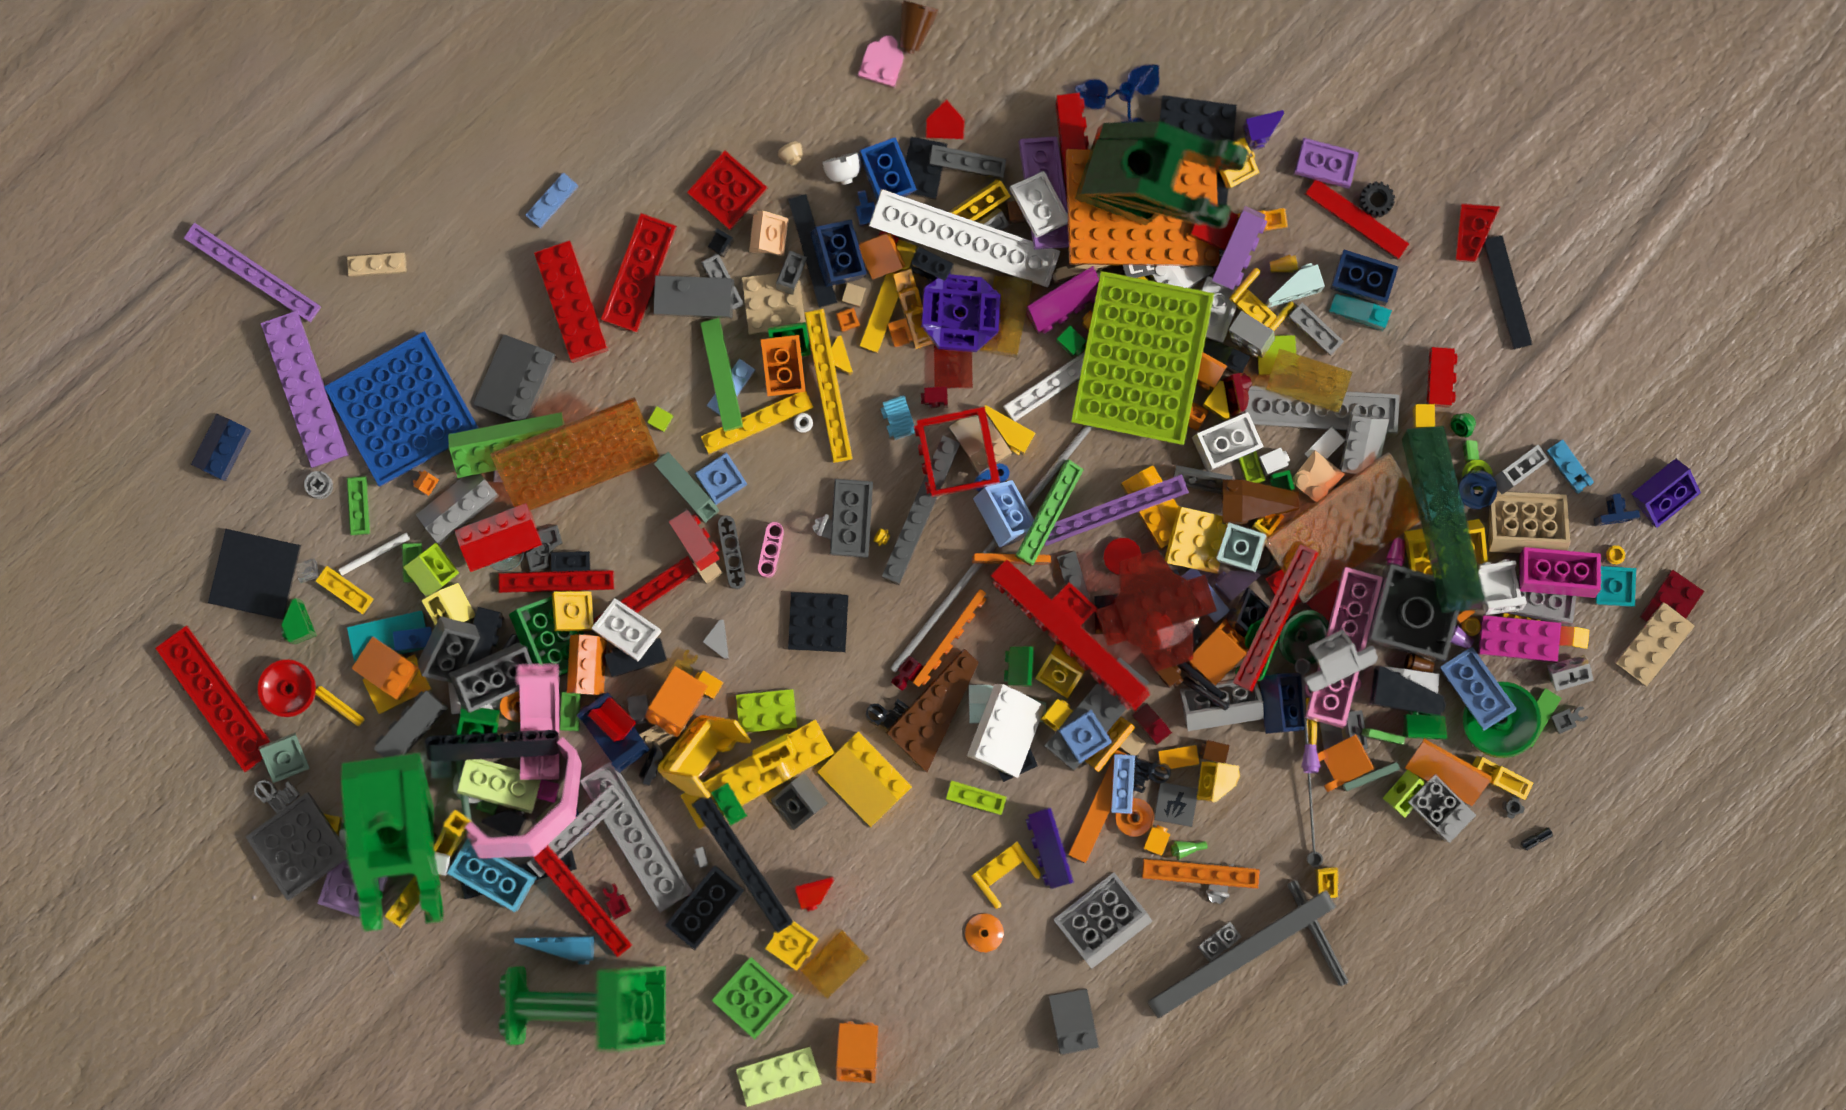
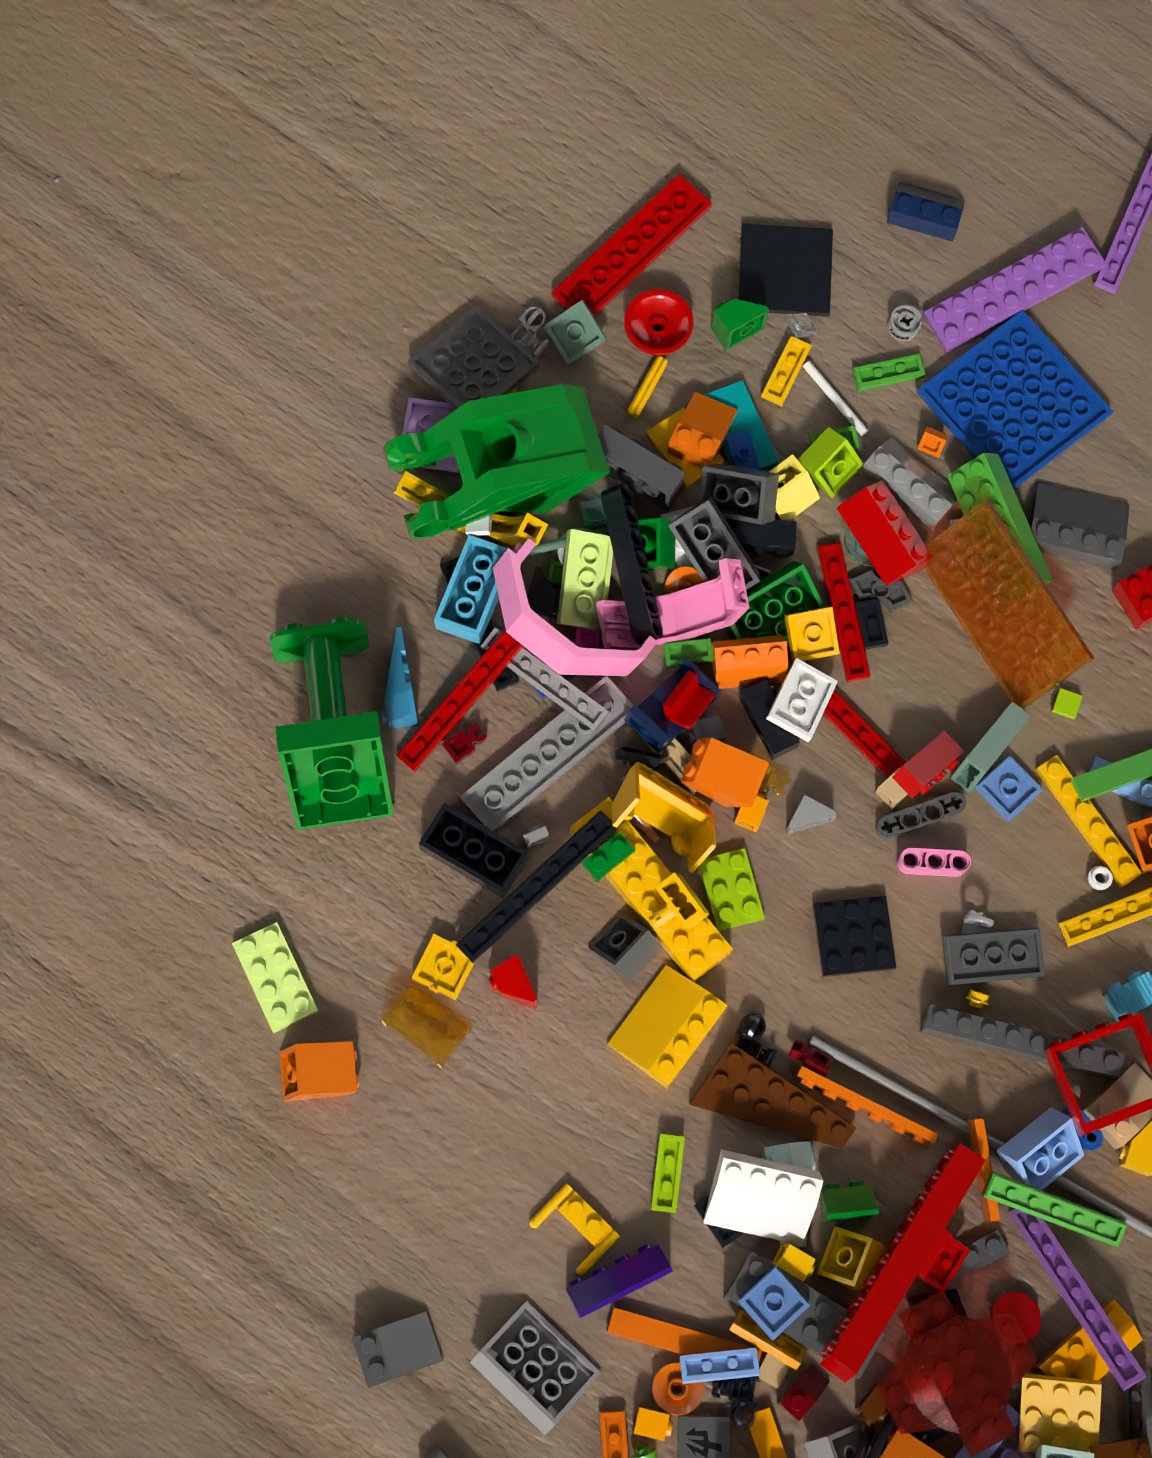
camera: 75 degrees right, 10 degrees down
(752, 998) = (369, 928): bright green plate -> none
(974, 929) = (495, 1226): orange dish -> none

